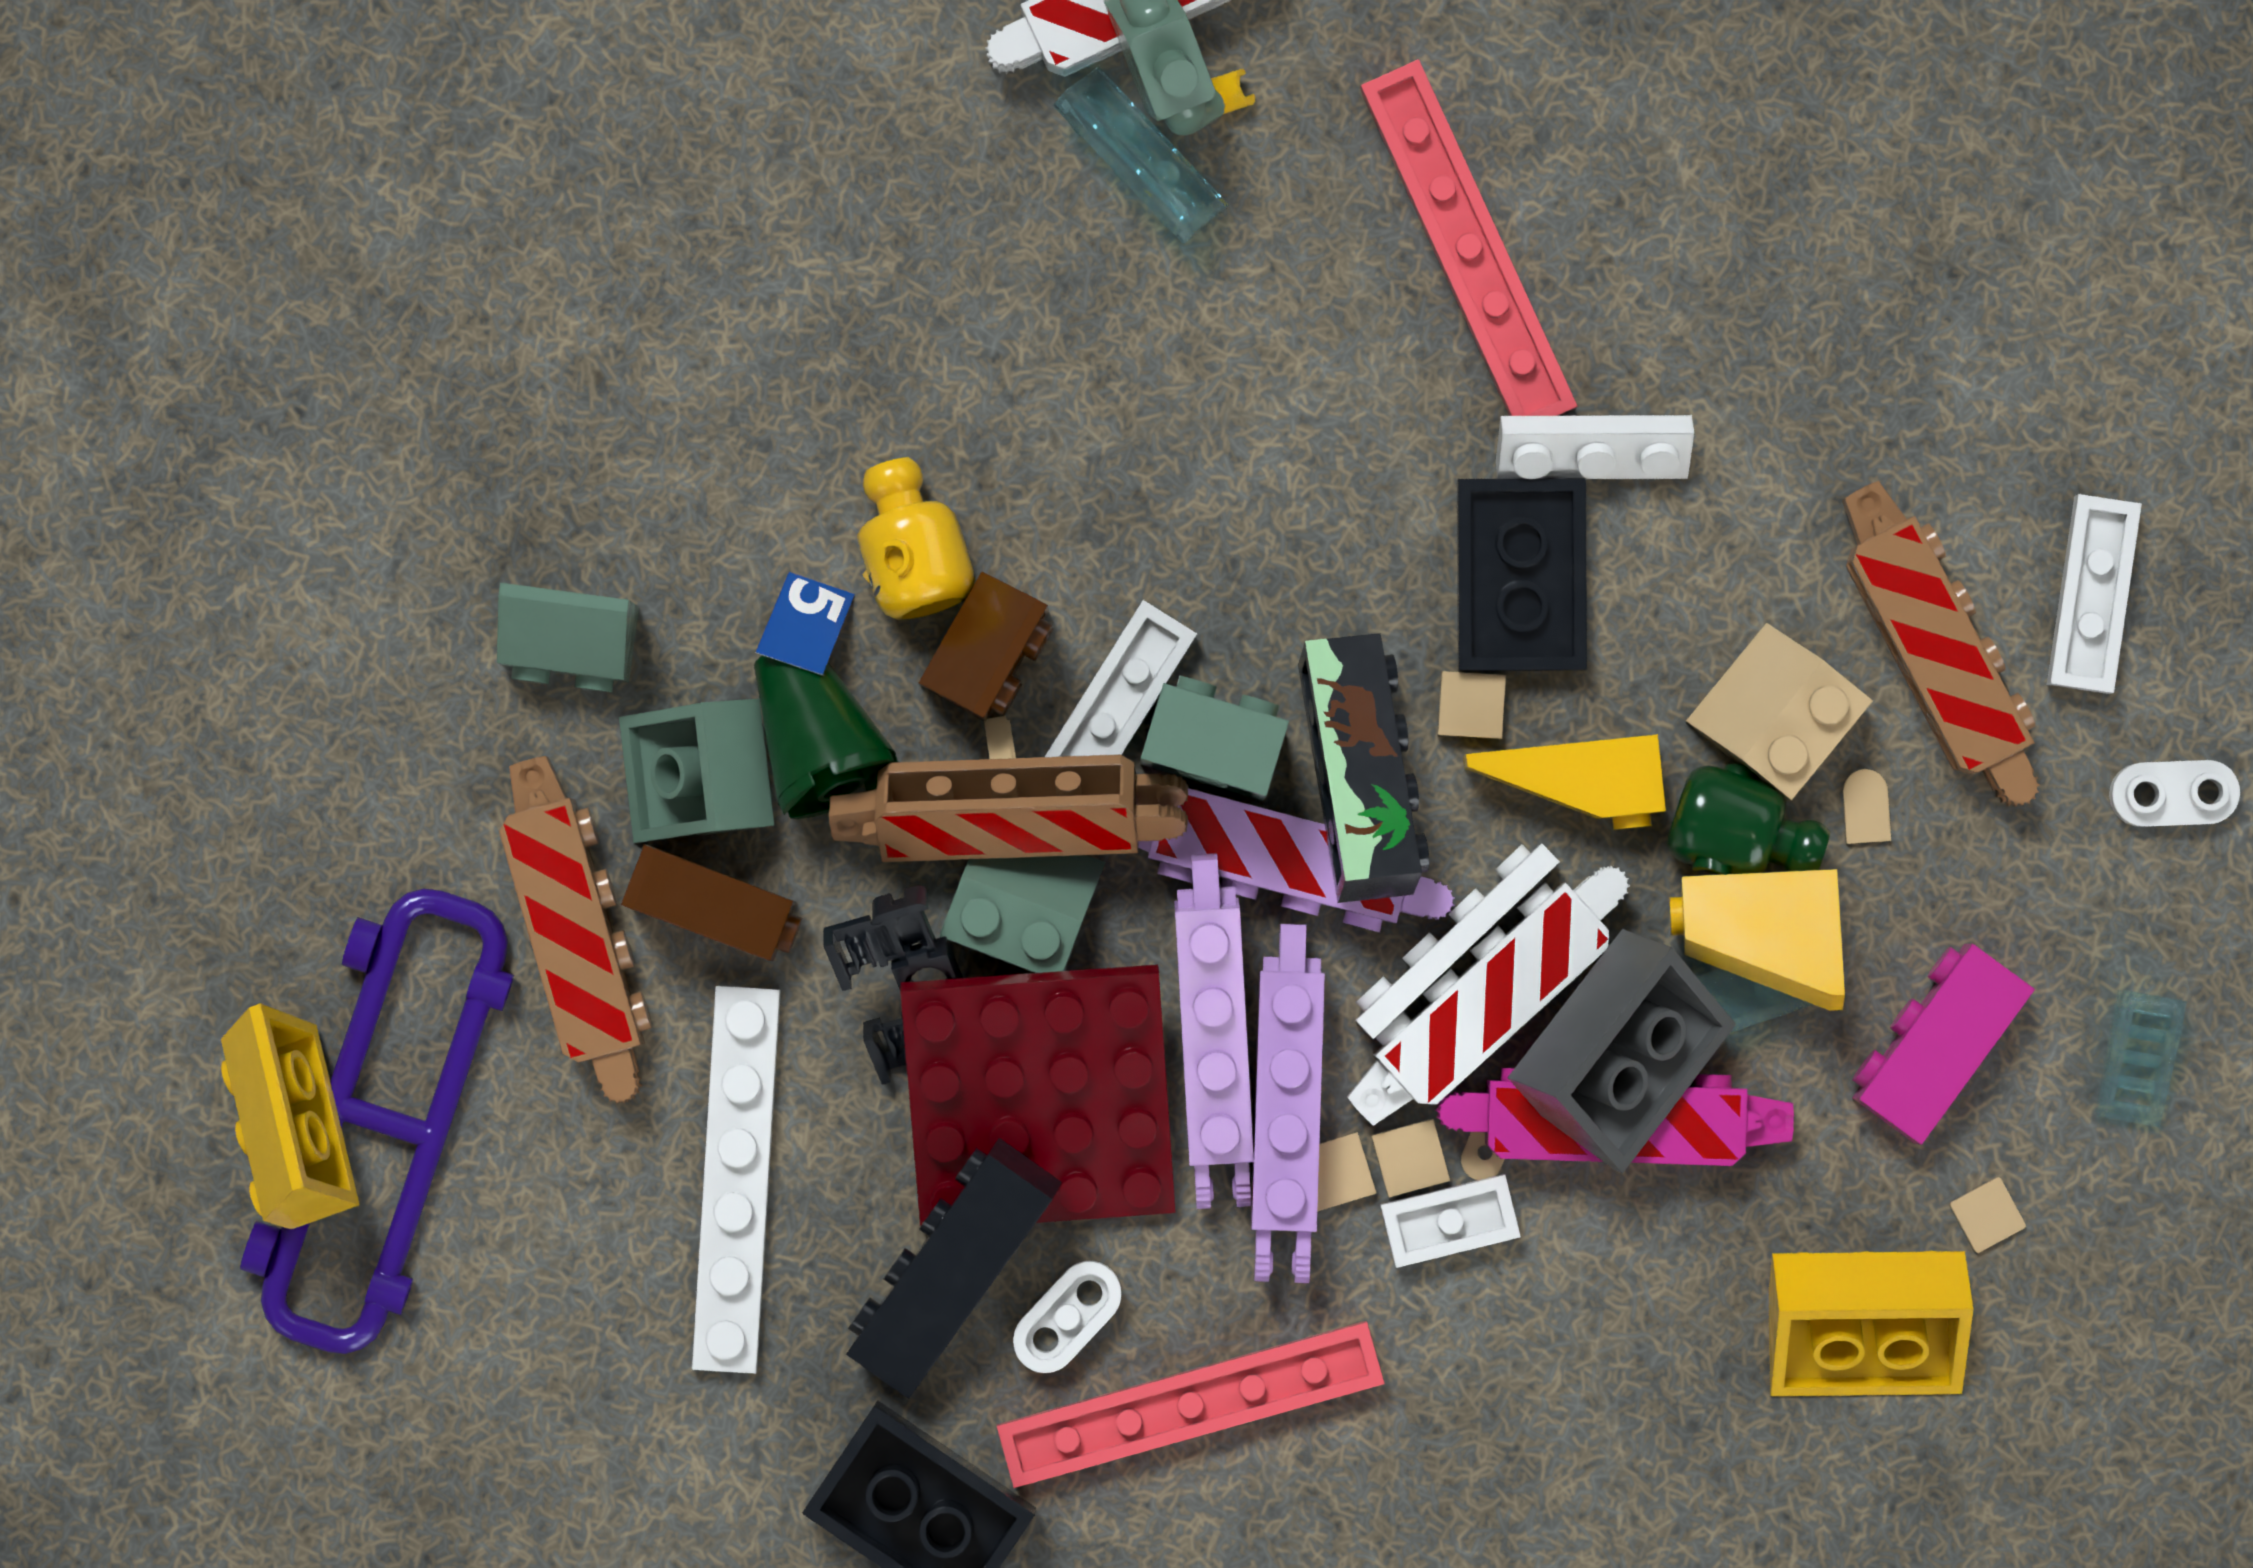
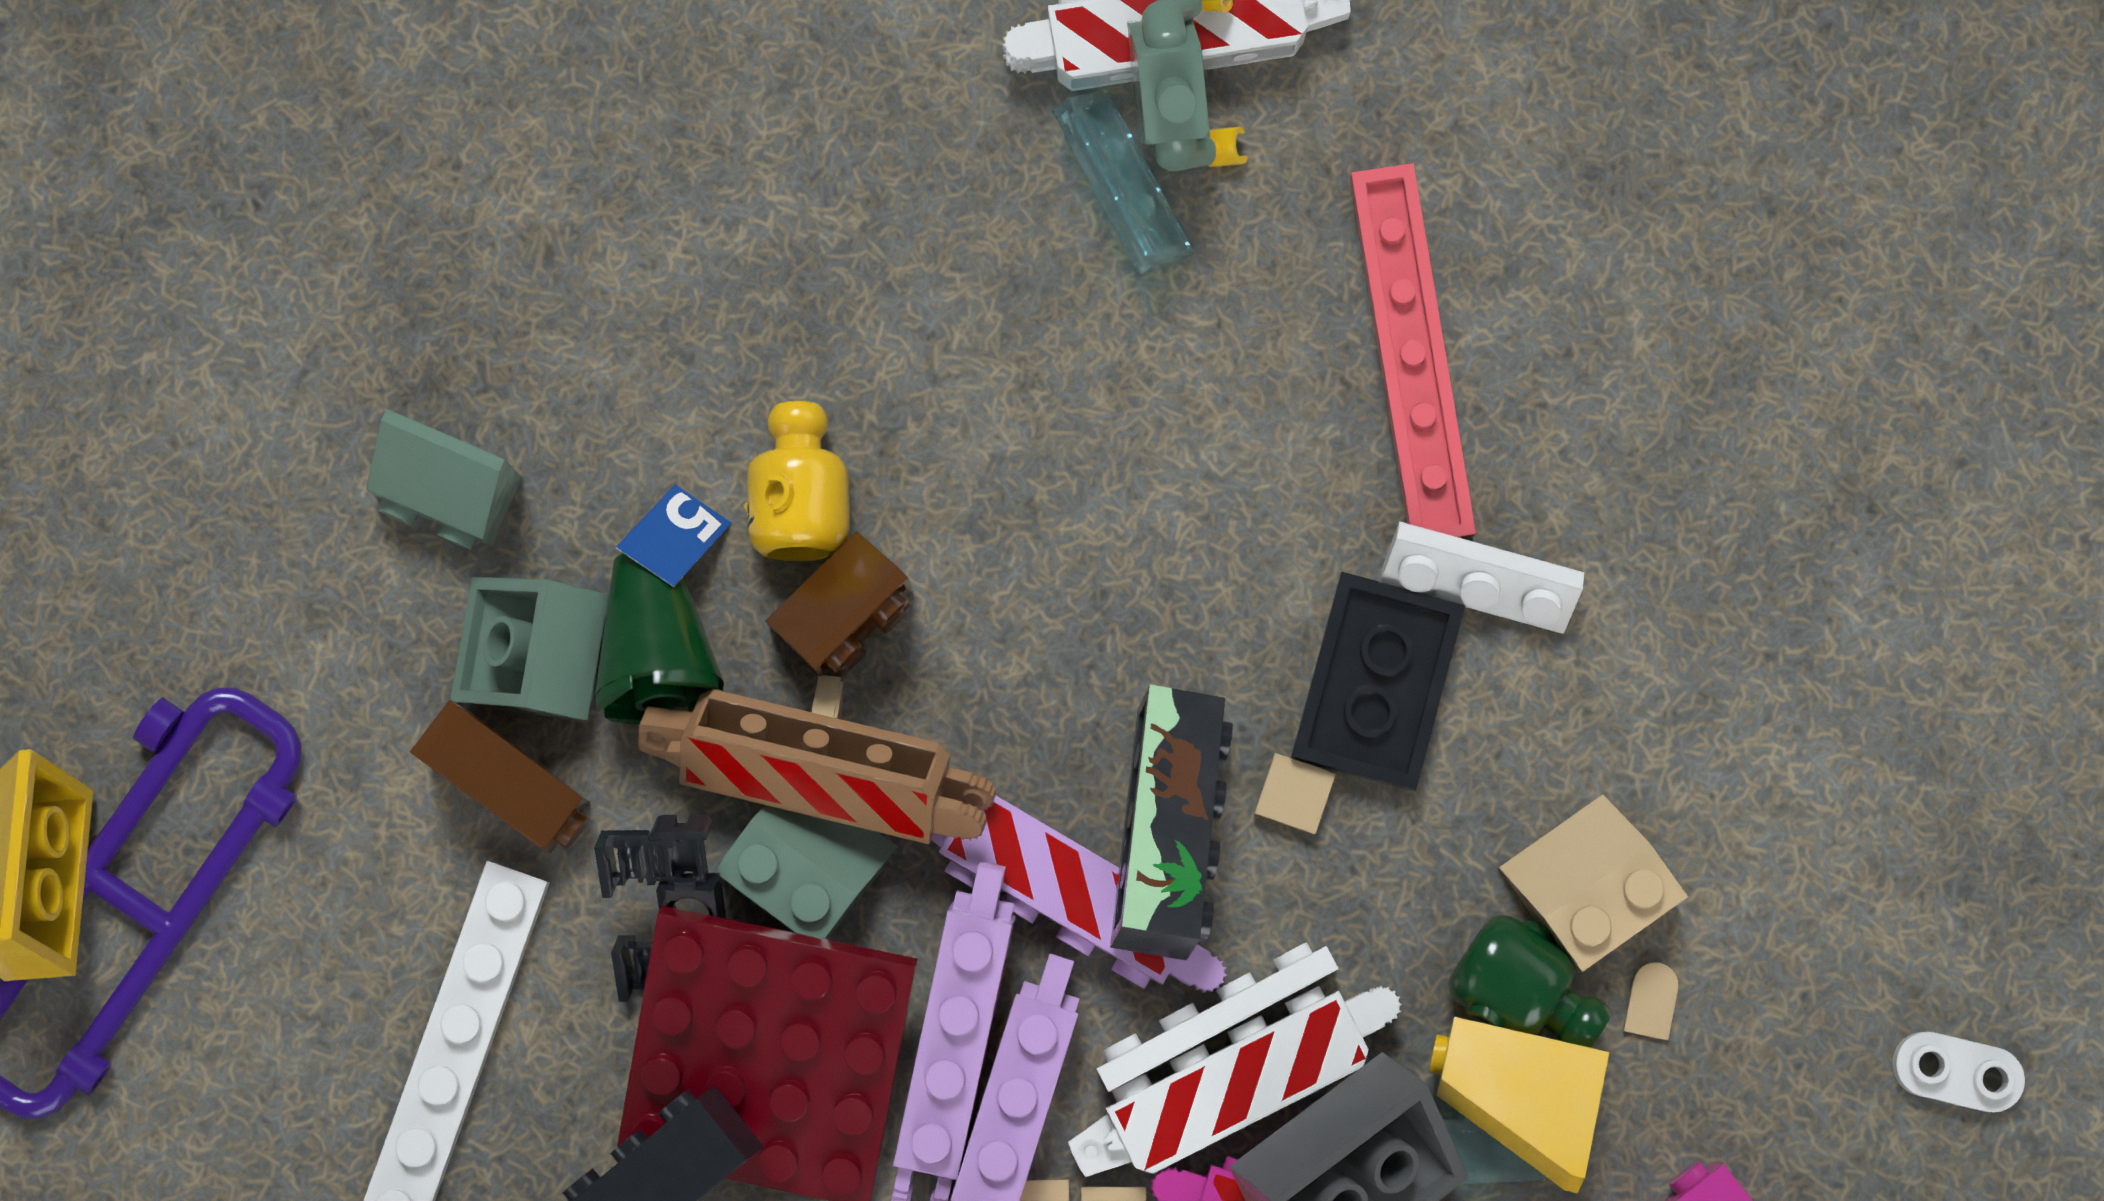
camera: 15 degrees right, 5 degrees down
(571, 929) = (364, 767): medium nougat hinge -> none
(1125, 685) = (966, 680): white plate -> none
(1215, 739) = (1033, 753): sand green brick -> none
(1592, 777) = (1391, 895): yellow slope -> none
(1937, 645) = (1765, 863): medium nougat hinge -> none
(2094, 594) = (1930, 855): white plate -> none

